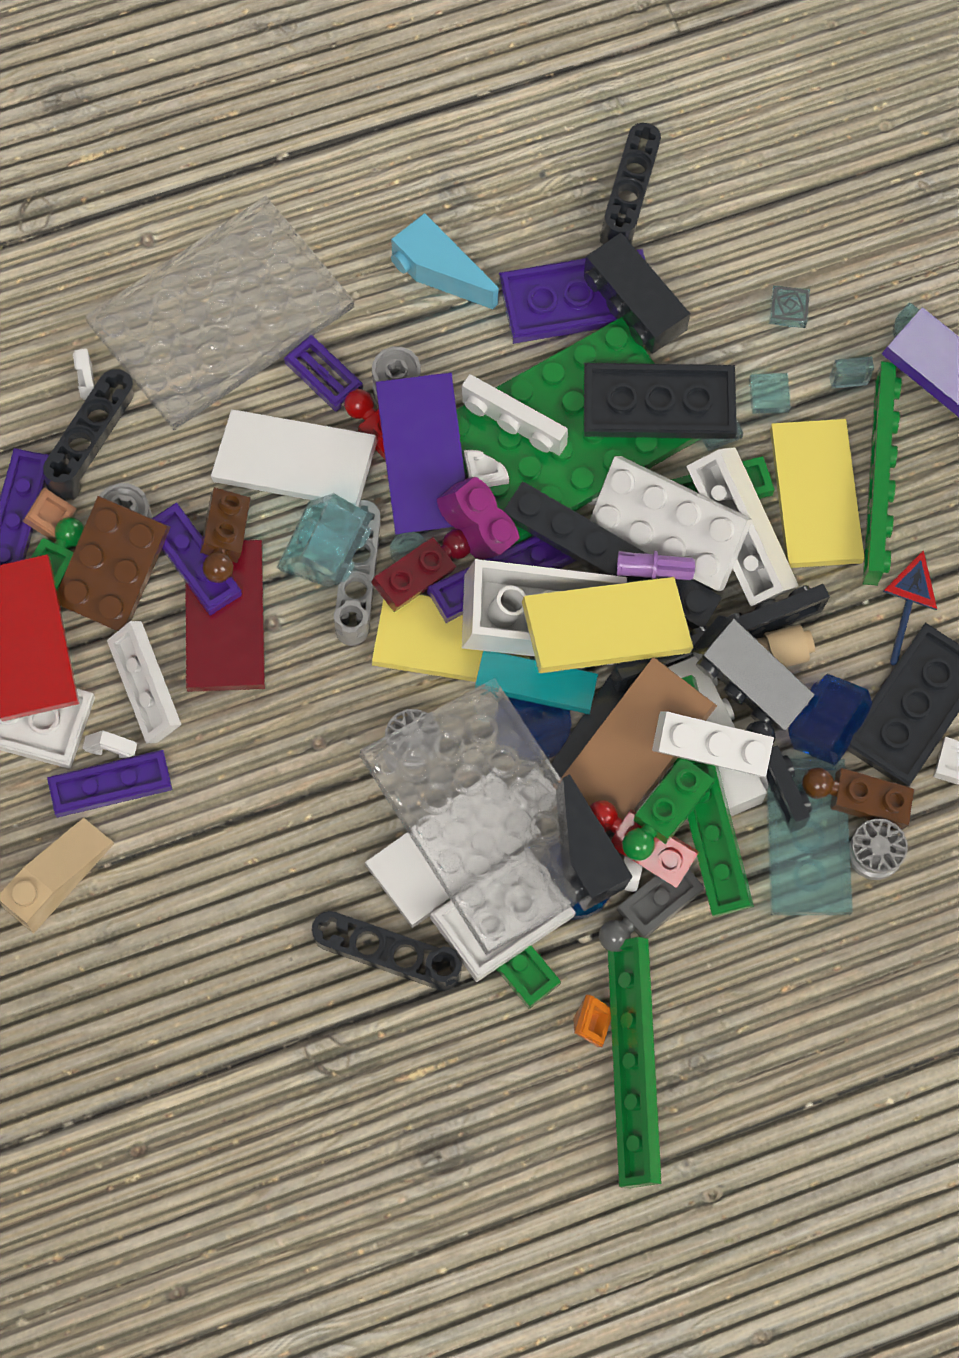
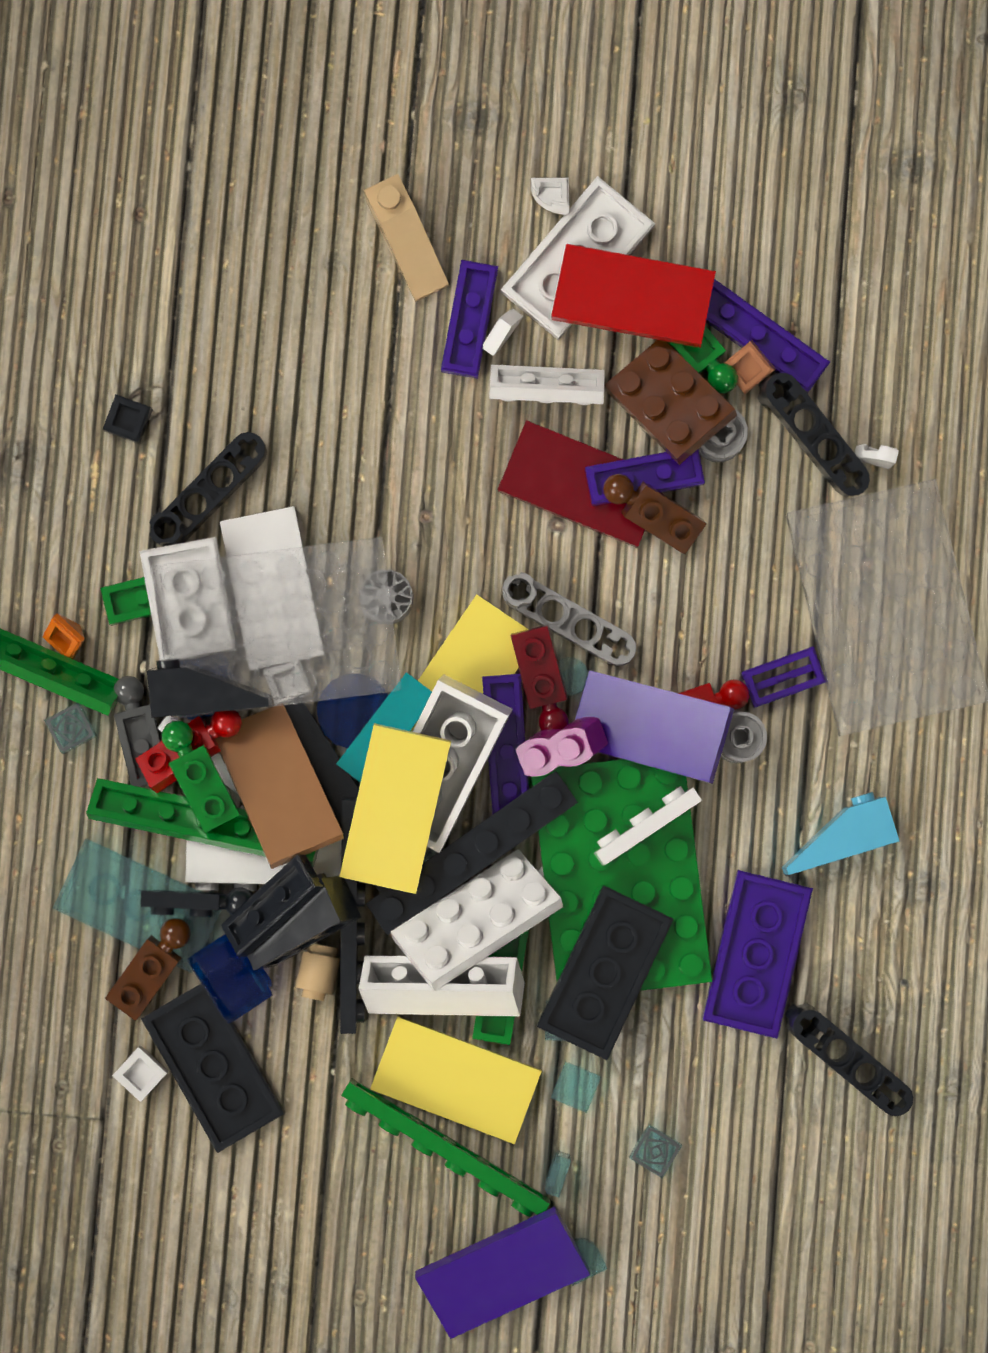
camera: 120 degrees right, 15 degrees up
(293, 457) = (704, 610): white tile -> none
(326, 541) = (603, 598): clear light blue slope -> none
(351, 1063) = (127, 419): none -> black tile
(485, 468) = (608, 775): white tile -> none
(636, 293) = (725, 1003): black brick -> none
(655, 566) = (435, 882): medium lavender axle -> none
(676, 976) = (70, 728): none -> tile
(712, 744) = (236, 846): white plate -> none
(749, 695) = (272, 905): none -> black tile
(877, 849) = (96, 959): light grey wheel -> none
(913, 586) = (325, 1123): piece -> none

